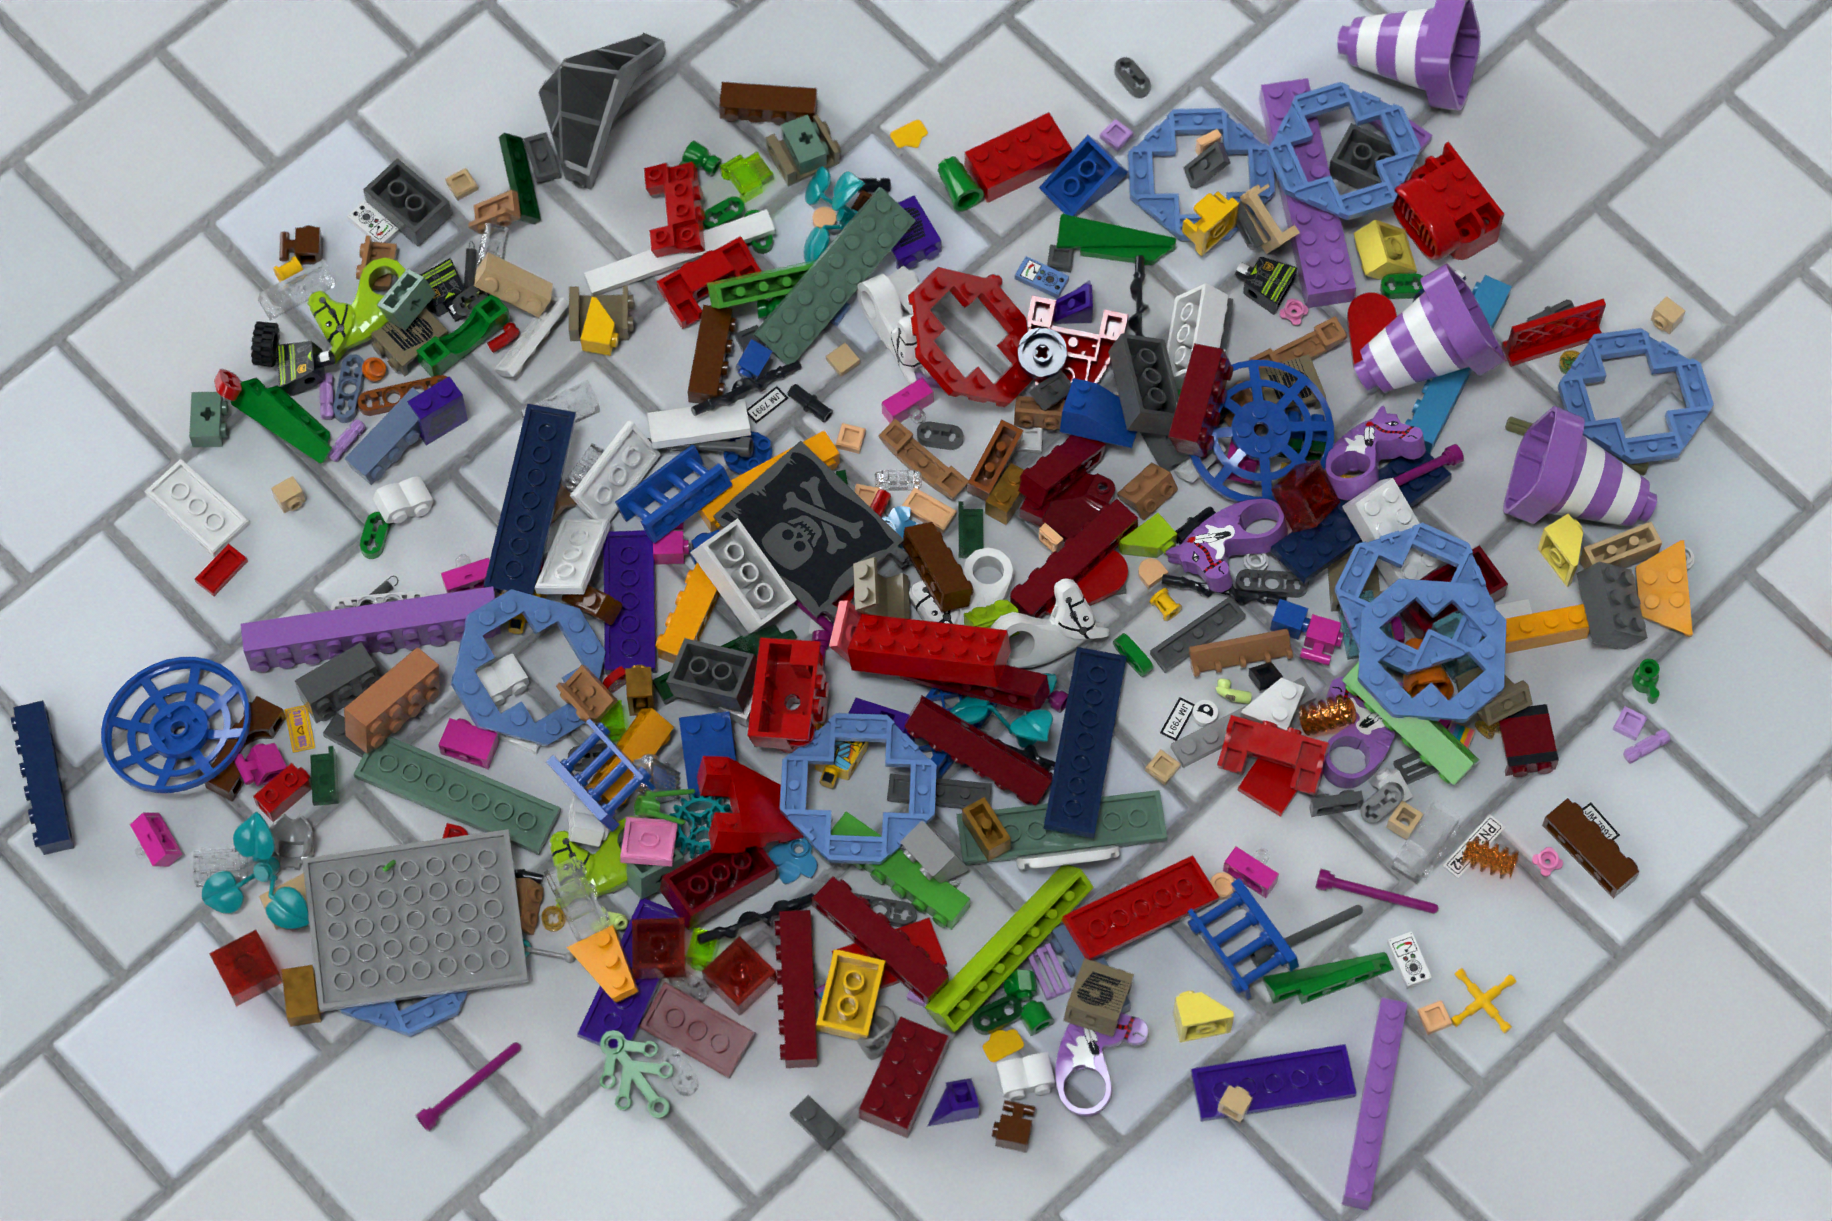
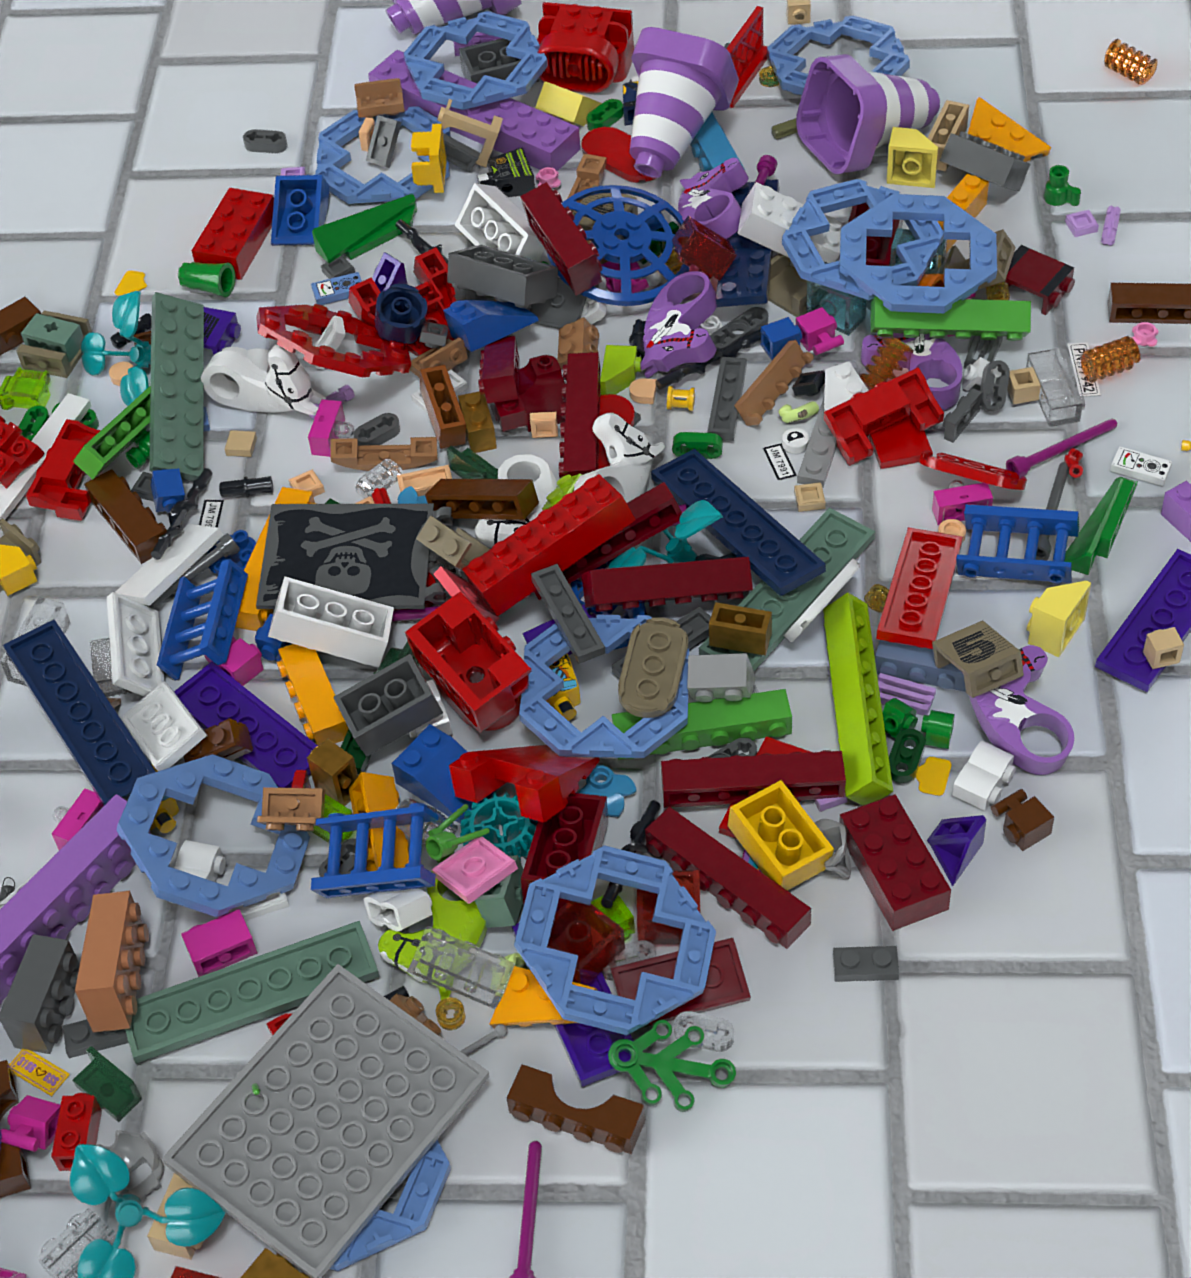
camera: 40 degrees left, 15 degrees down
(569, 1075) = (612, 1124): none -> reddish brown arch
(660, 1024) = (556, 968): none -> medium blue plate
(882, 716) = (568, 613): none -> dark grey plate
(896, 806) = (653, 667): none -> dark tan tile
(977, 329) = (332, 335): none -> white tile
(1111, 885) = (876, 597): none -> clear yellow bush
(1243, 120) = (379, 98): none -> medium nougat bracket
(1284, 855) = (973, 470): none -> red tile
(1364, 915) = (1072, 460): none -> red arm

